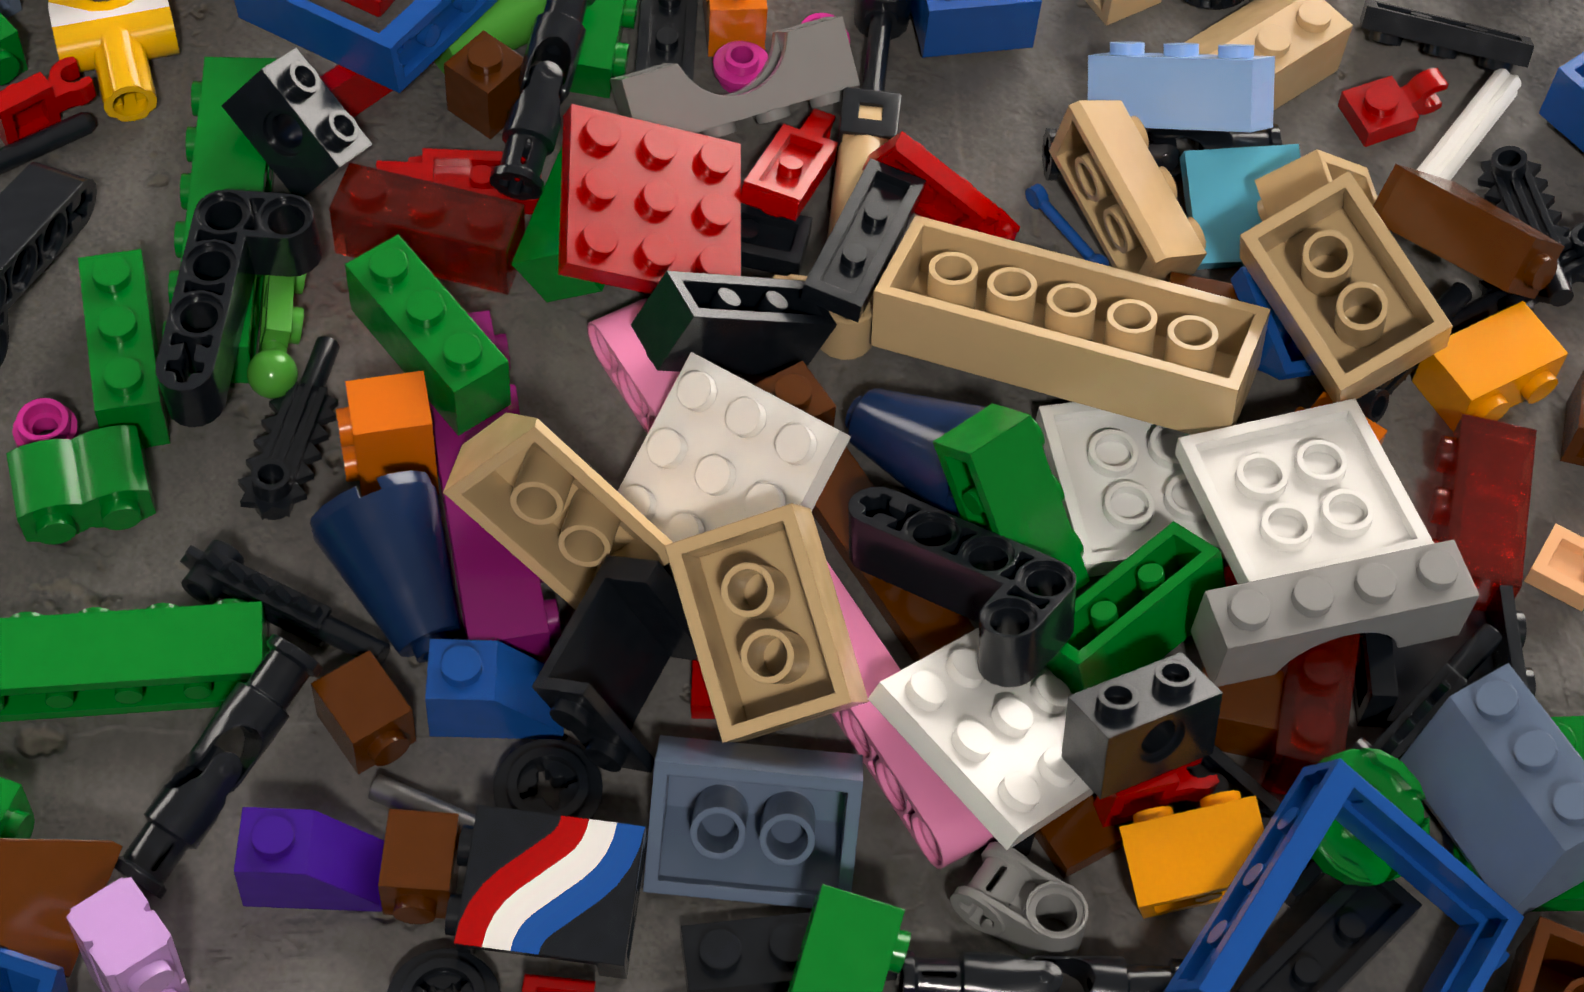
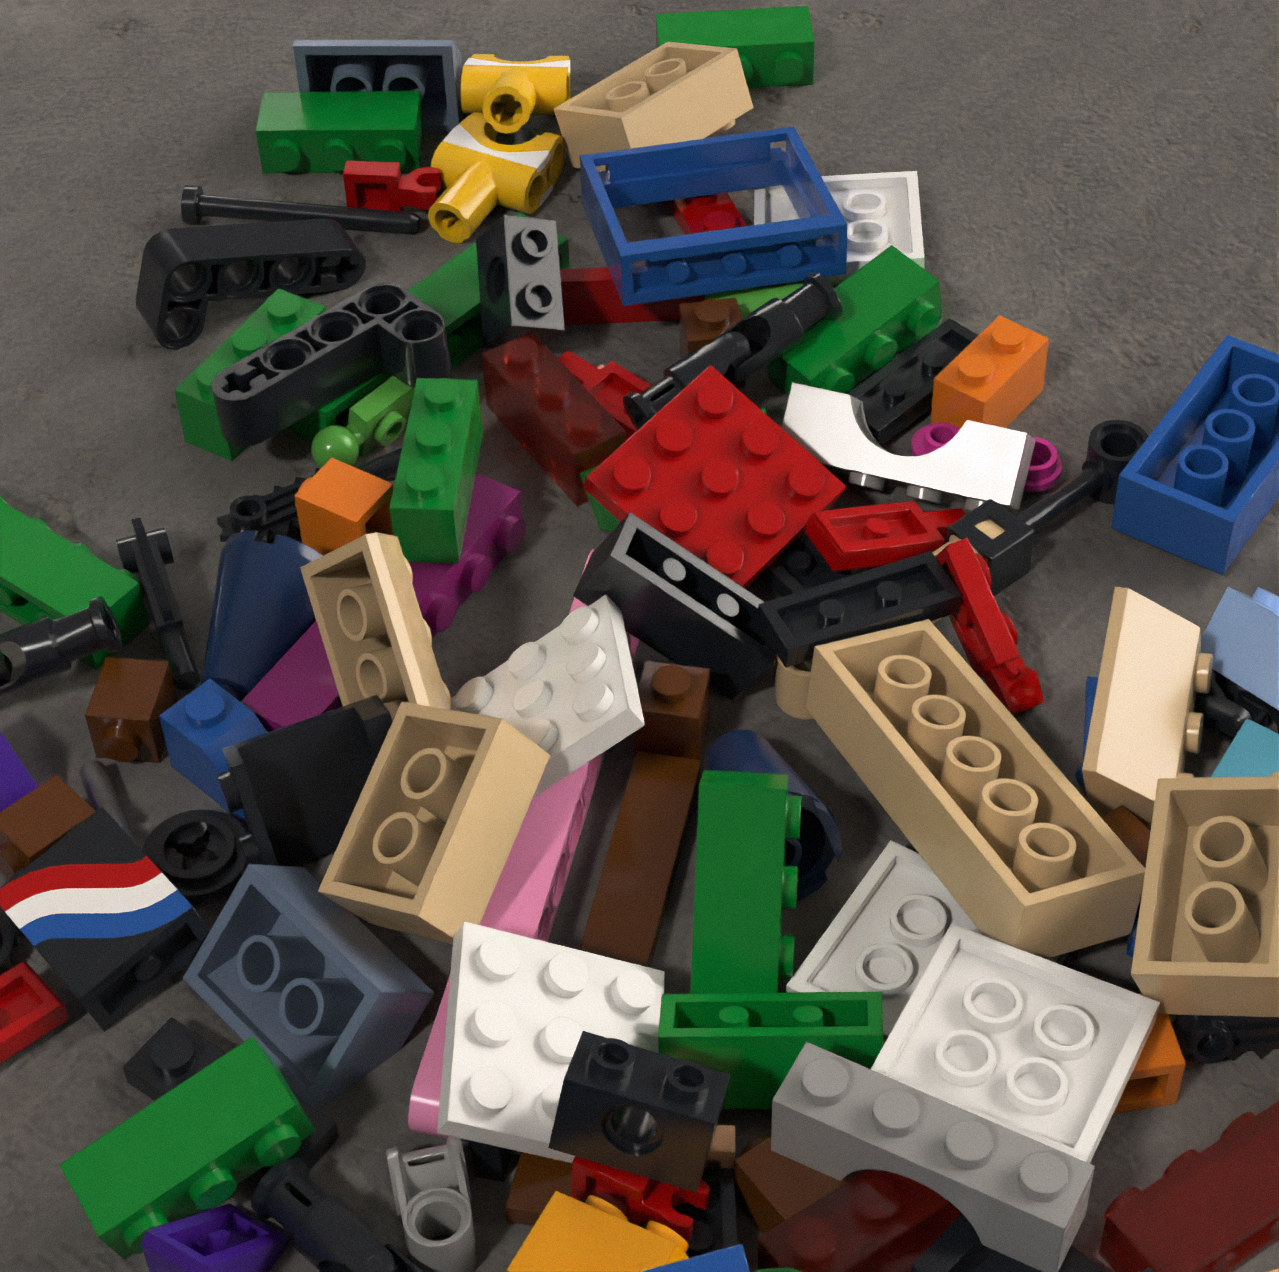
camera: 50 degrees right, 10 degrees down
(44, 415) = (153, 396): dark pink plate -> none
(80, 484) = (133, 442): green brick -> none
(1006, 587) = (659, 941): black beam -> none

